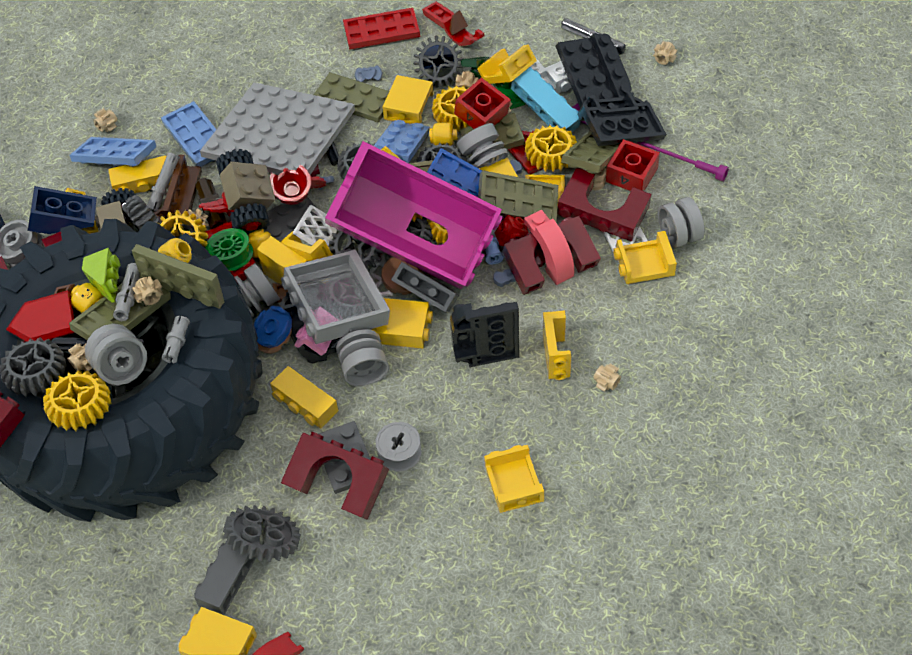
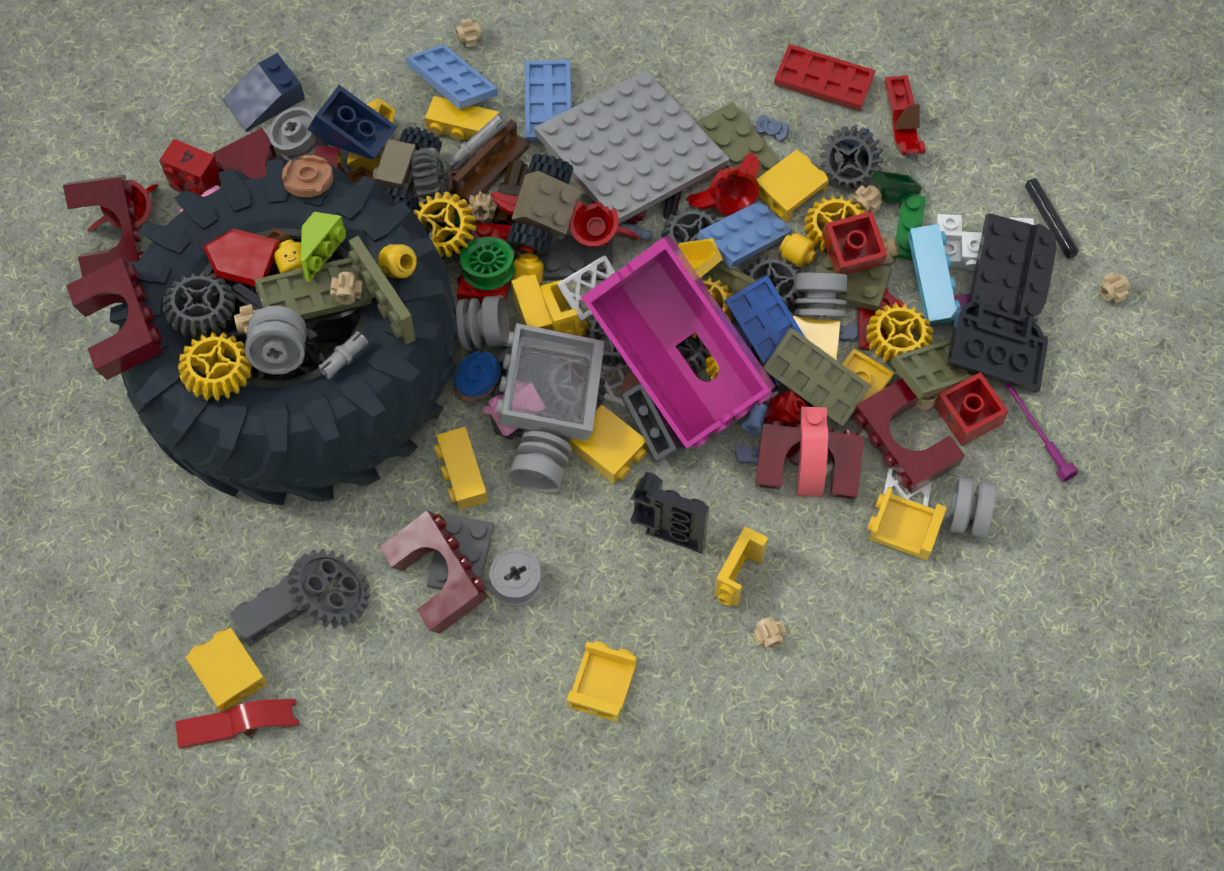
camera: 30 degrees right, 10 degrees up
(60, 239) = (307, 176): none -> nougat tile
(122, 309) = (310, 295): light grey pin -> none
(369, 120) = (731, 188): none -> red helmet
(506, 68) = (916, 208): yellow panel -> none

